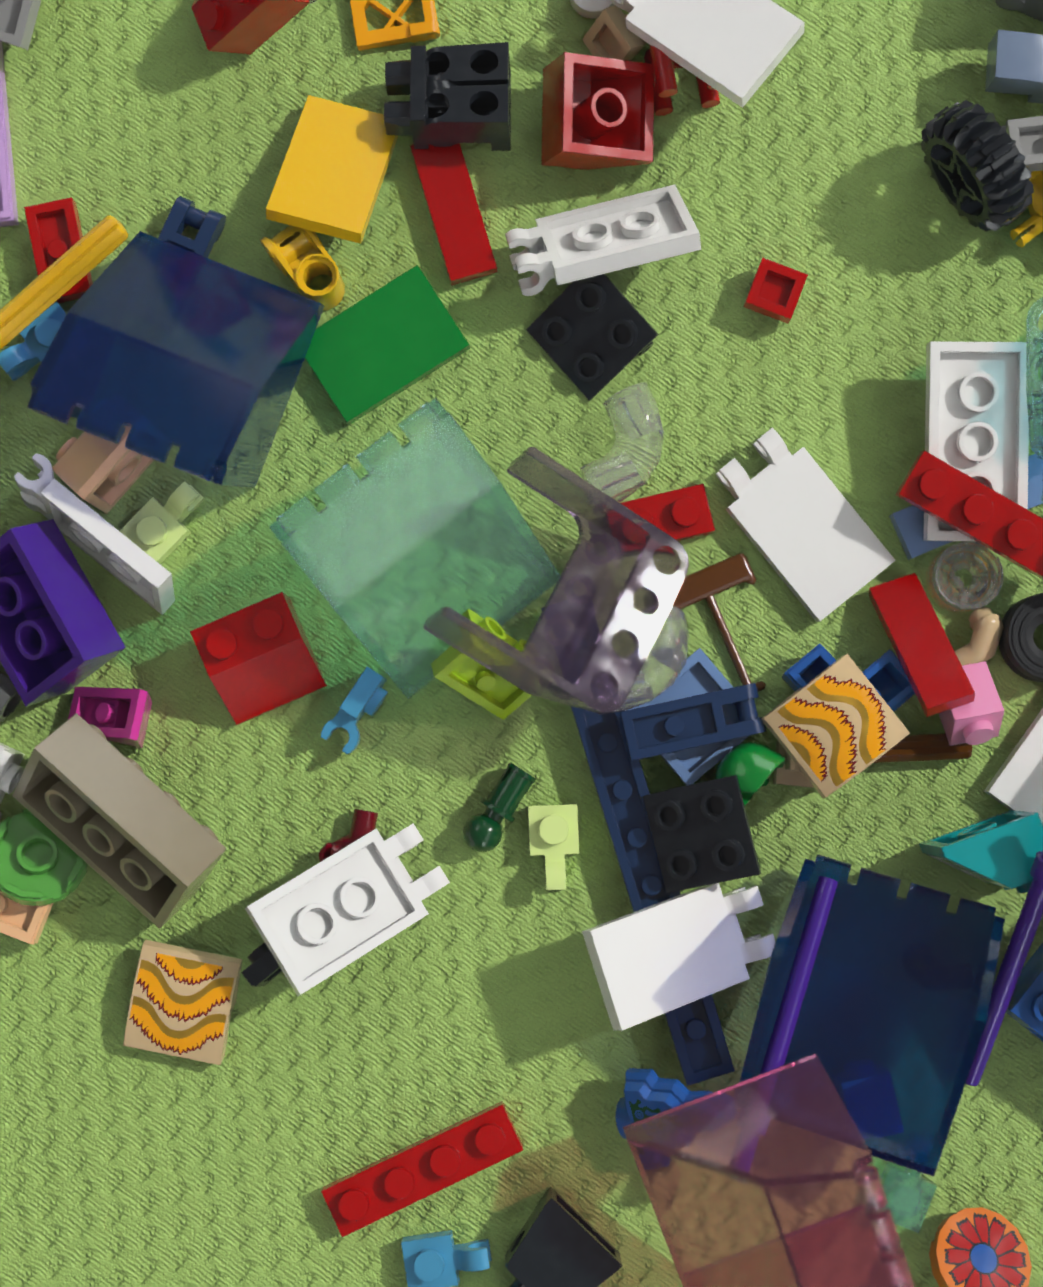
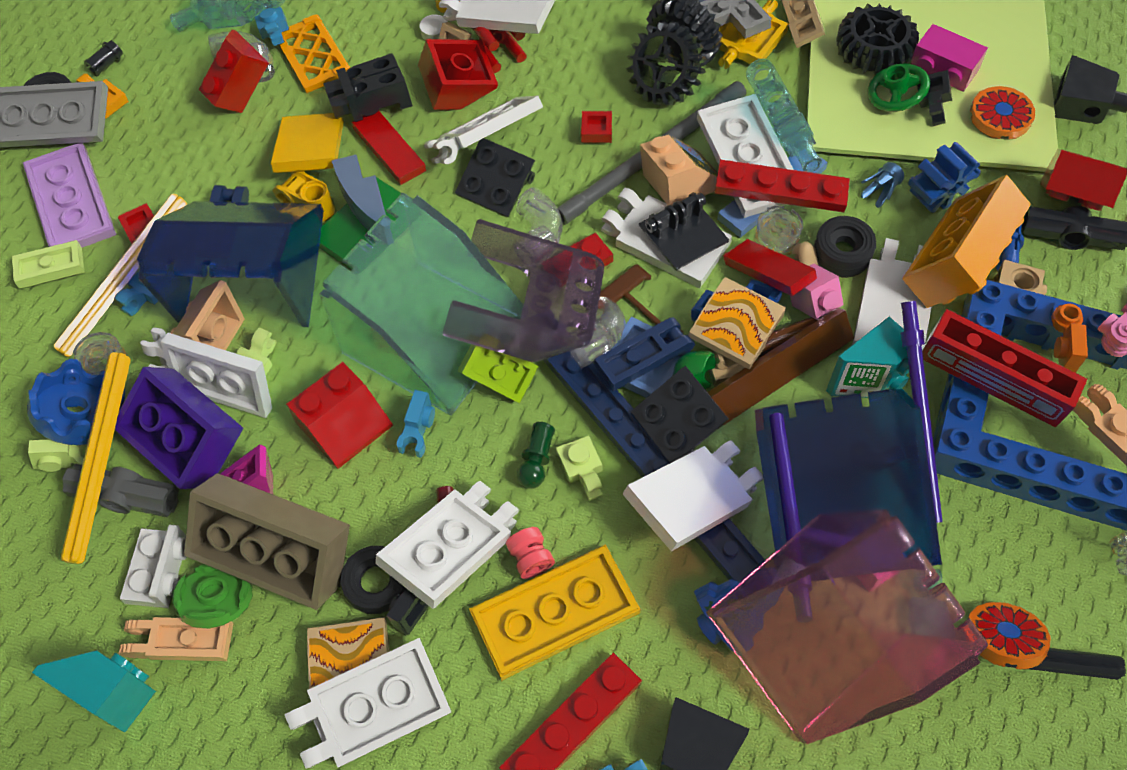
camera: 15 degrees left, 25 degrees down
(193, 1069) = (371, 705): none -> white tile
(213, 896) = (351, 583): none -> black tyre
(386, 310) = (359, 192): none -> sand blue slope
(446, 954) = (530, 552): none -> coral wheel
(450, 1022) = (554, 611): none -> yellow tile
(827, 536) = (684, 231): none -> black hinge
(865, 425) = (676, 169): none -> light nougat slope
(871, 796) = (783, 364): none -> reddish brown tile
(947, 223) = (659, 90): none -> black gear
(982, 309) = (580, 202): none -> dark grey piece

